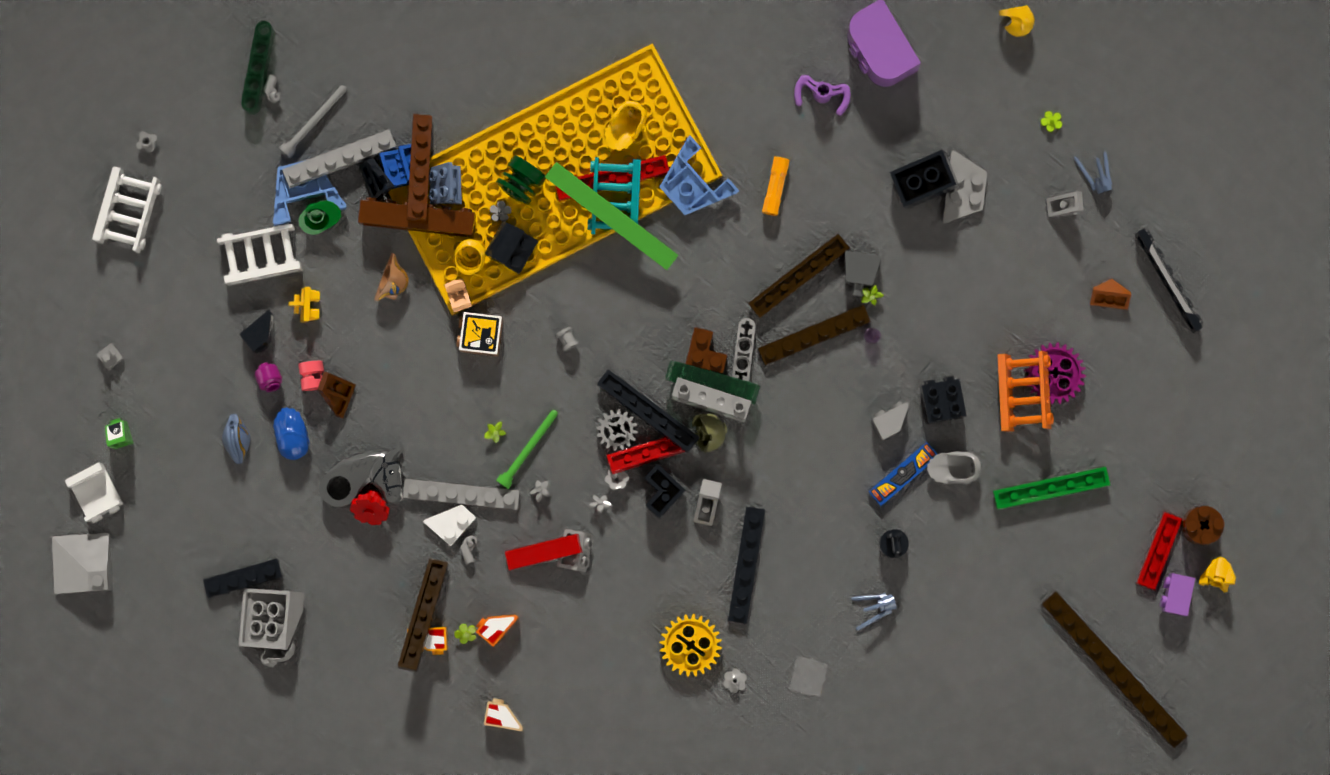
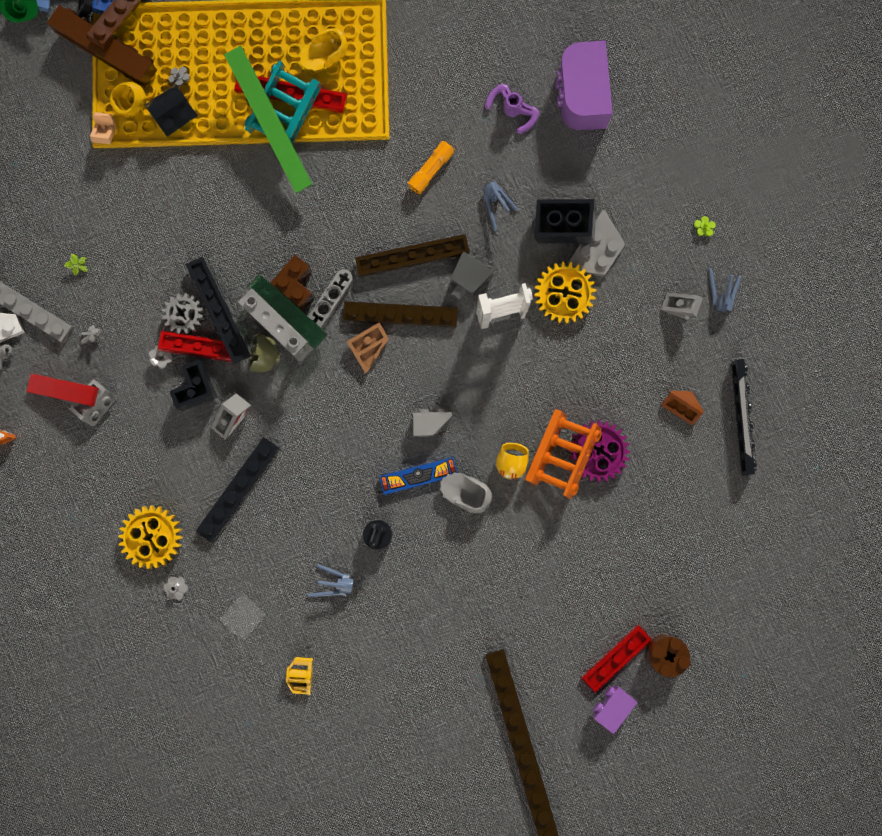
camera: 25 degrees right, 0 degrees up
(393, 280) = (56, 92): medium nougat hat -> none
(445, 184) = (142, 29): sand blue bracket -> none
(480, 334) = (107, 173): piece -> none
(506, 478) = (65, 310): bright green piece -> none
(521, 180) = (206, 52): dark green wheel -> none
(567, 339) = (180, 213): light grey bush -> none
(600, 503) = (136, 371): light grey plant -> none
(687, 188) = (351, 131): medium blue wing -> none
(800, 378) = (368, 345): none -> medium nougat wing
(845, 181) = (494, 193): none -> sand blue plant
(871, 295) = (467, 302): lime plant -> none
(872, 335) = (451, 339): clear purple hinge -> none
(886, 702) = (300, 675): none -> yellow piece
(895, 295) = (490, 309): none -> white fence
(943, 400) = (485, 426): black brick -> none
(958, 260) = (567, 275): none -> yellow gear
(982, 424) = (511, 465): none -> yellow helmet
(1021, 18) = (721, 122): yellow helmet -> none
(1051, 488) = (545, 553): green plate -> none
(1218, 574) = (661, 708): yellow brick -> none

